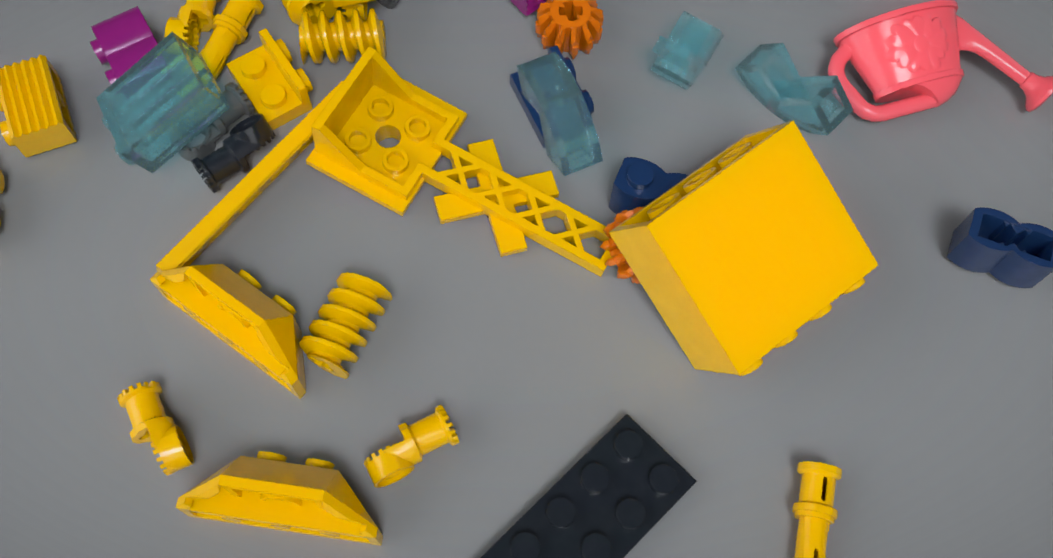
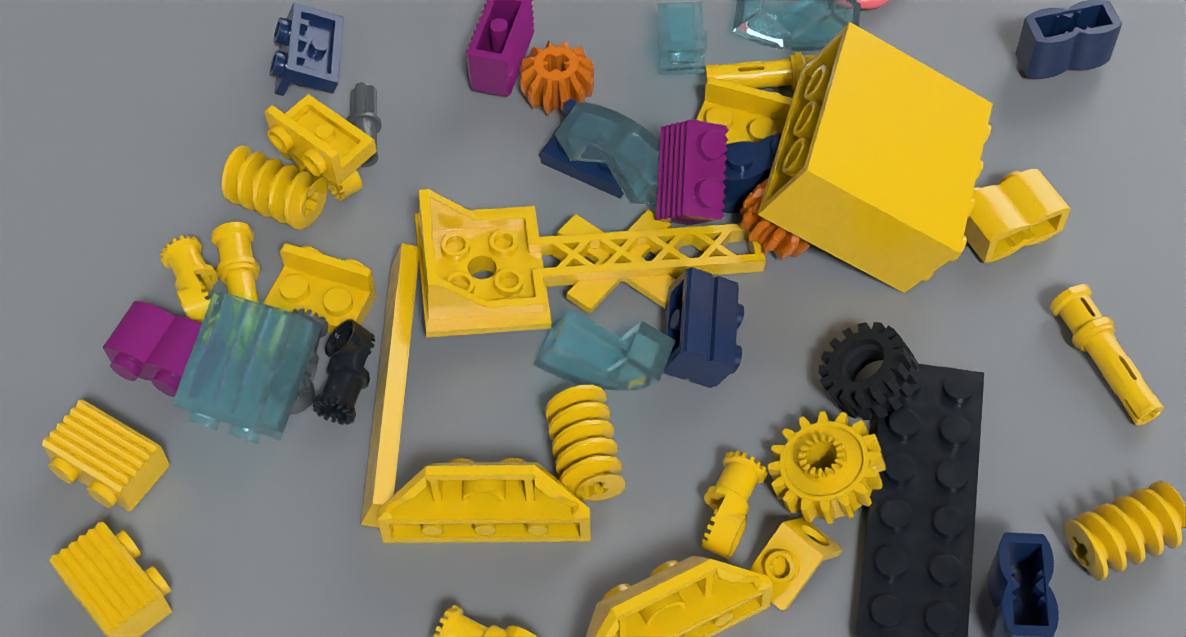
camera: 30 degrees left, 10 degrees down
(340, 36) = (357, 208): yellow piece -> none
(417, 263) = (593, 355): none -> clear light blue brick
(419, 523) = (793, 558): none -> yellow bracket
(506, 293) = (704, 323): none -> dark blue brick
(512, 493) = (835, 491): none -> yellow gear
(593, 164) = (691, 172): none -> magenta brick
(605, 437) = (882, 387): none -> black tyre
(677, 139) = (744, 110): none -> yellow bracket
(721, 113) = (762, 73): none -> yellow pin
(832, 365) = (1014, 215): none -> yellow brick

